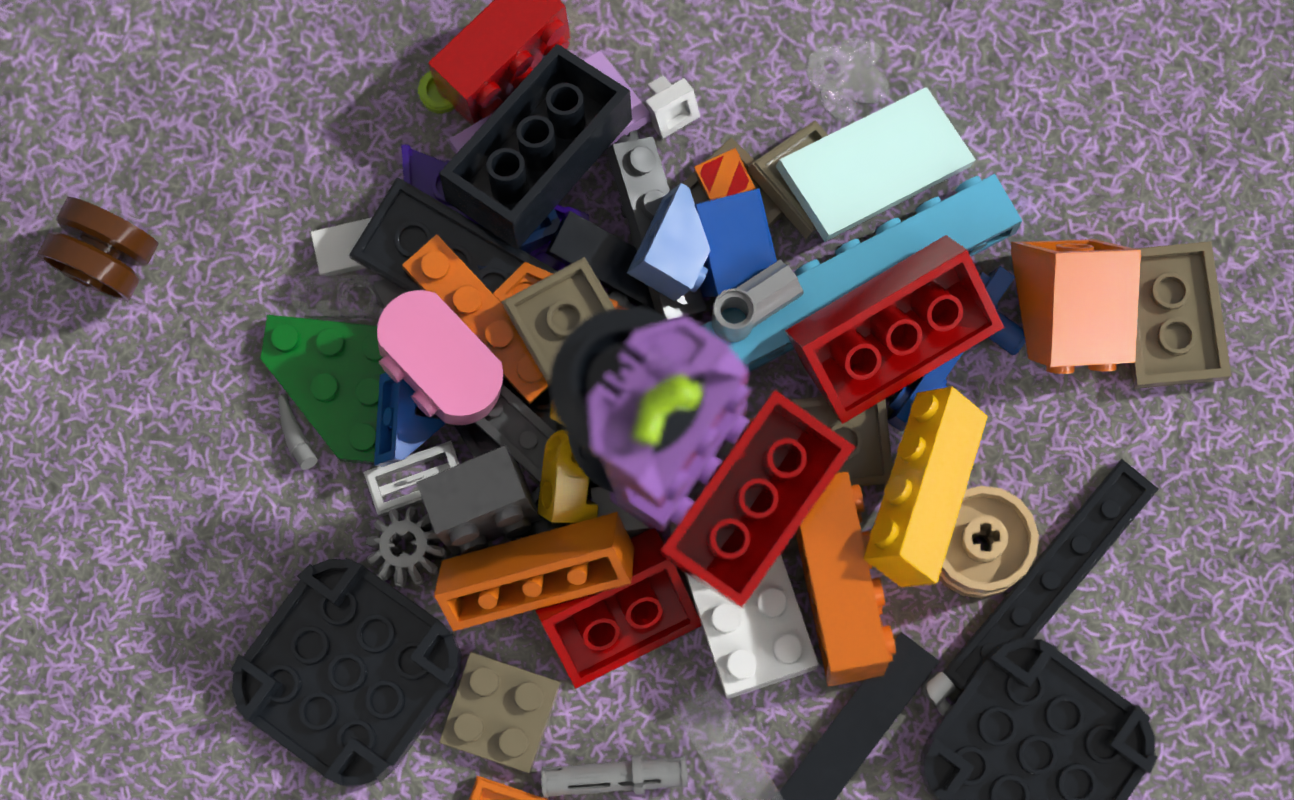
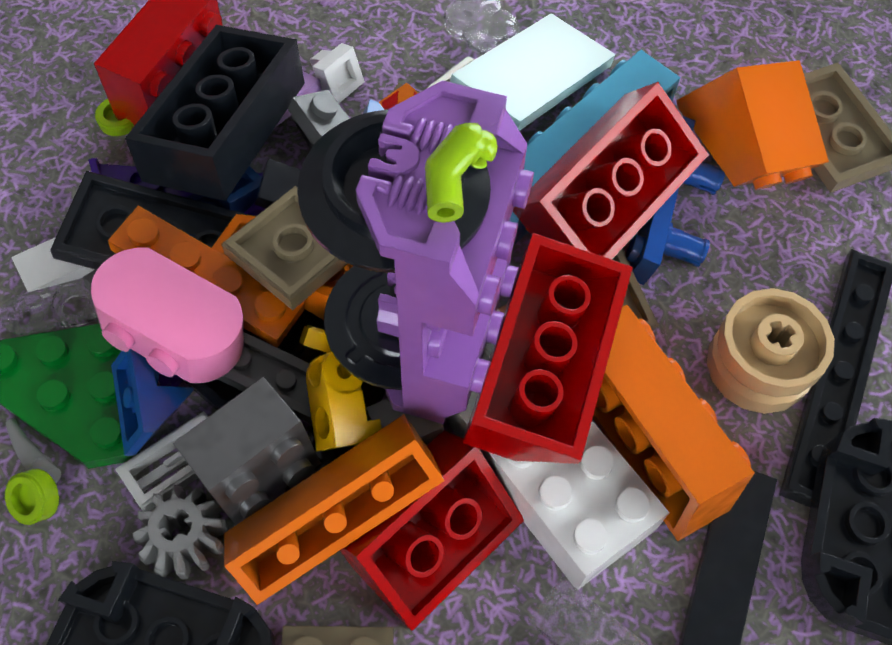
camera: 30 degrees left, 15 degrees down
(289, 476) = (31, 496): none -> lime tile
(926, 487) = (707, 307): yellow brick -> none
(937, 689) = (787, 509): light grey hand -> none

